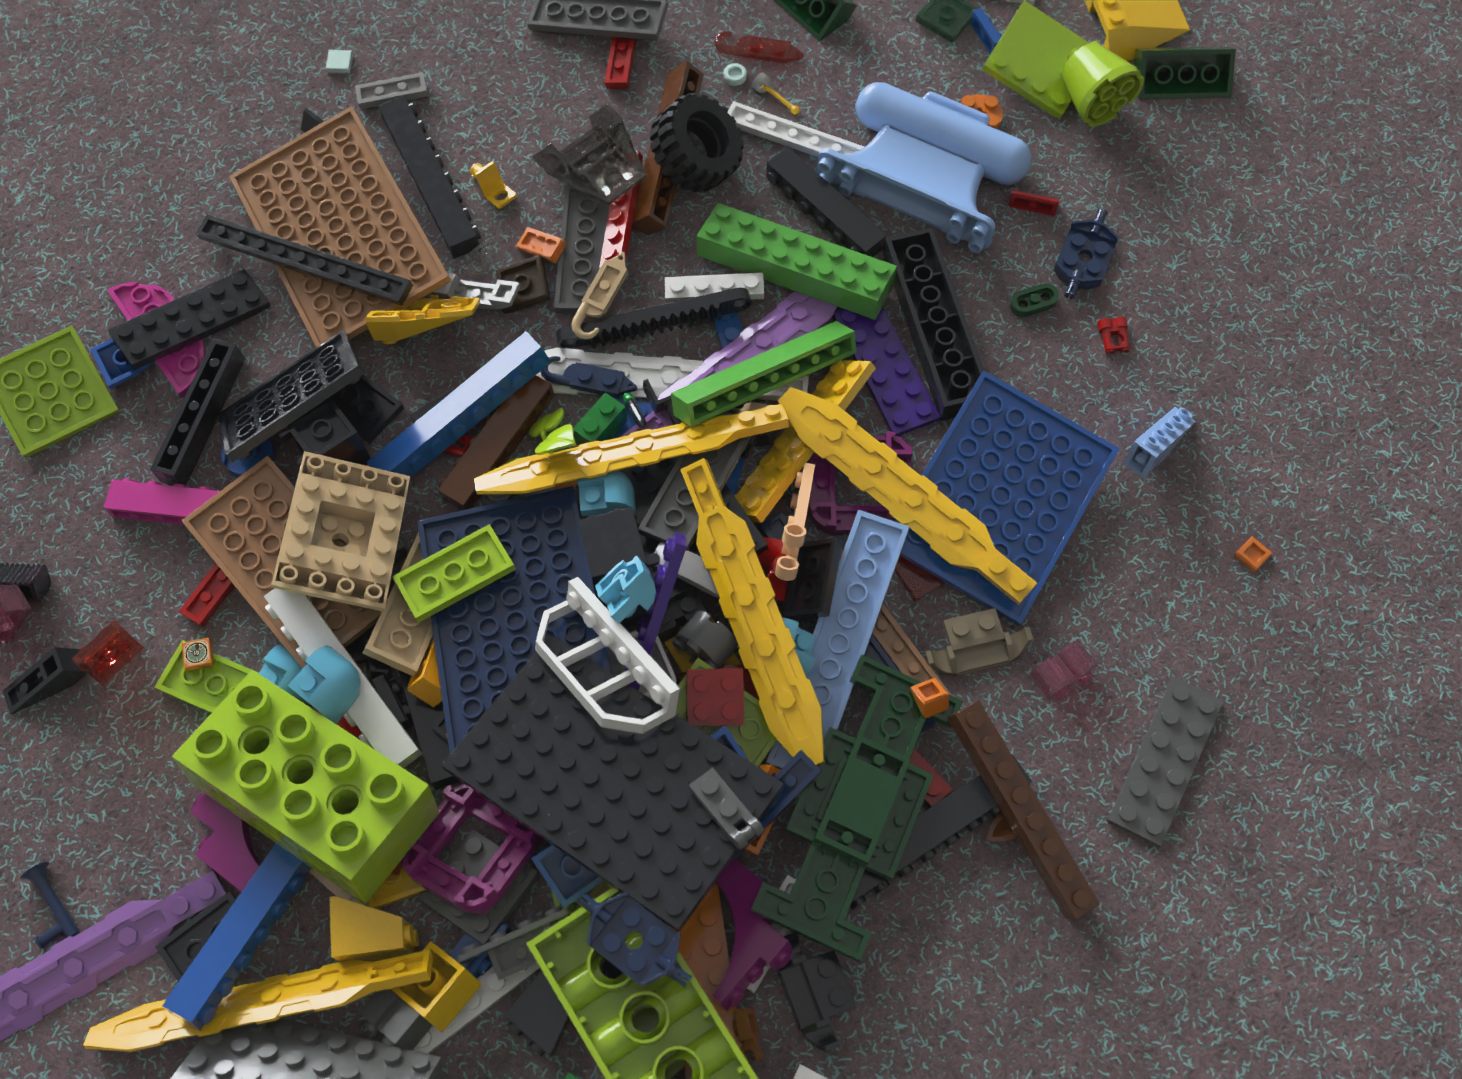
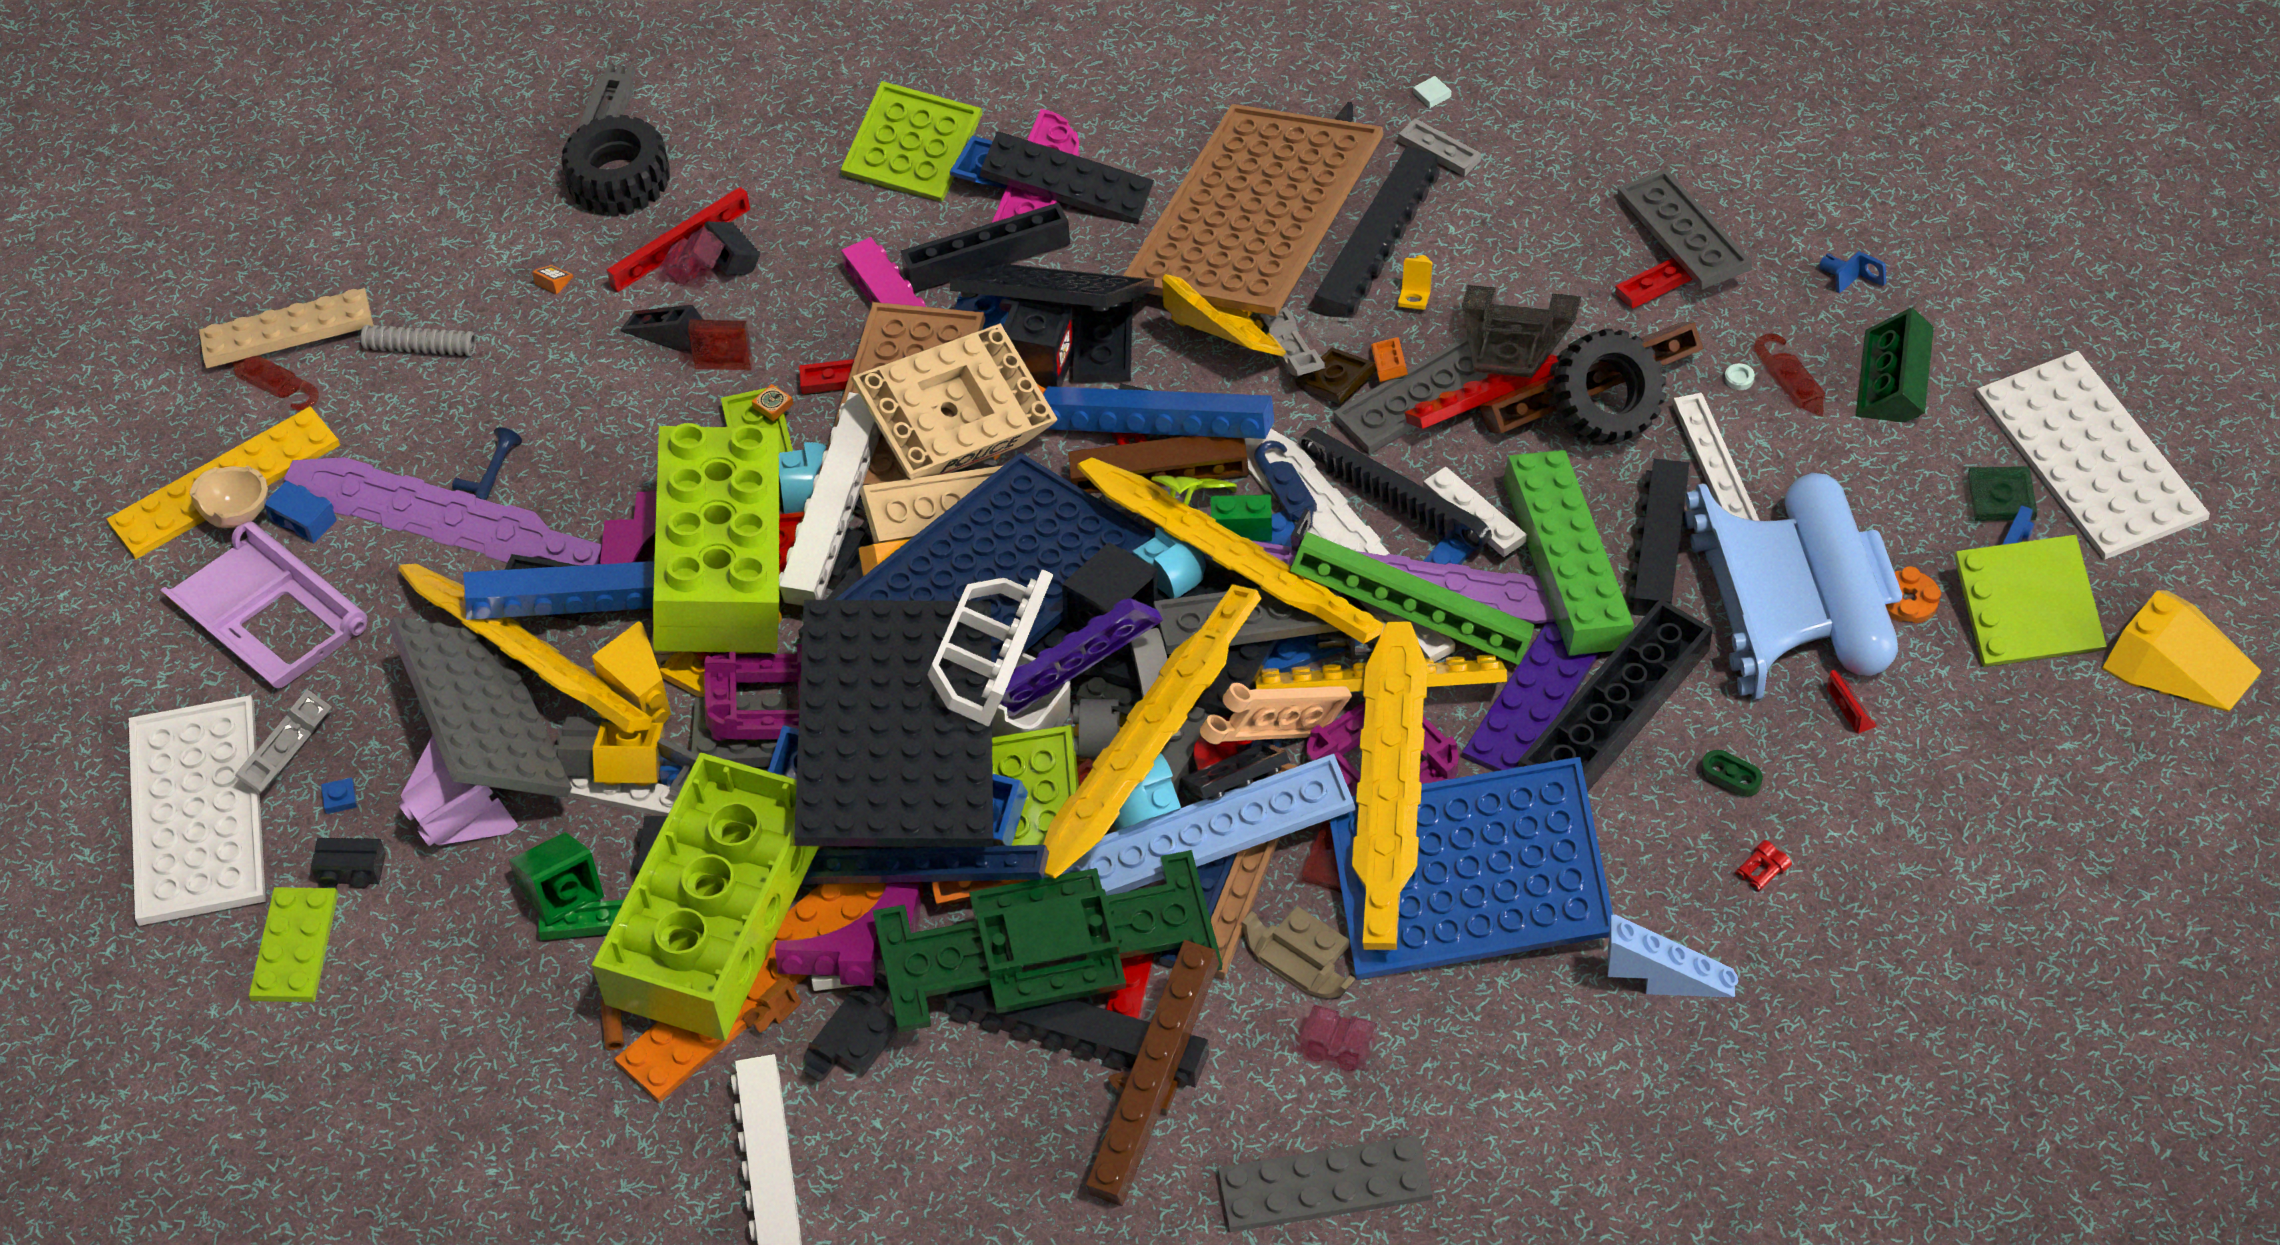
camera: 55 degrees right, 15 degrees down
(305, 259) = (1195, 207): black plate -> none
(328, 683) = (812, 485): medium azure brick -> none
(453, 573) = (989, 503): lime plate -> none
(600, 294) = (1373, 427): tan plate -> none
(618, 918) = (758, 796): dark blue plate -> none
(626, 588) = (1067, 610): medium azure brick -> none
(634, 409) = (1280, 533): black piece -> none
(715, 697) = (1047, 764): red plate -> none
(725, 808) = (929, 804): dark grey plate -> none
(763, 84) = (1749, 403): hinge -> none
(930, 697) = (1198, 928): orange slope -> none
(1088, 238) = (1853, 772): dark blue plate -> none
(1100, 82) = (2041, 661): lime cone -> none
(1186, 72) = (2158, 733): dark green slope -> none
(1253, 554) = (1625, 1132): orange tile -> none

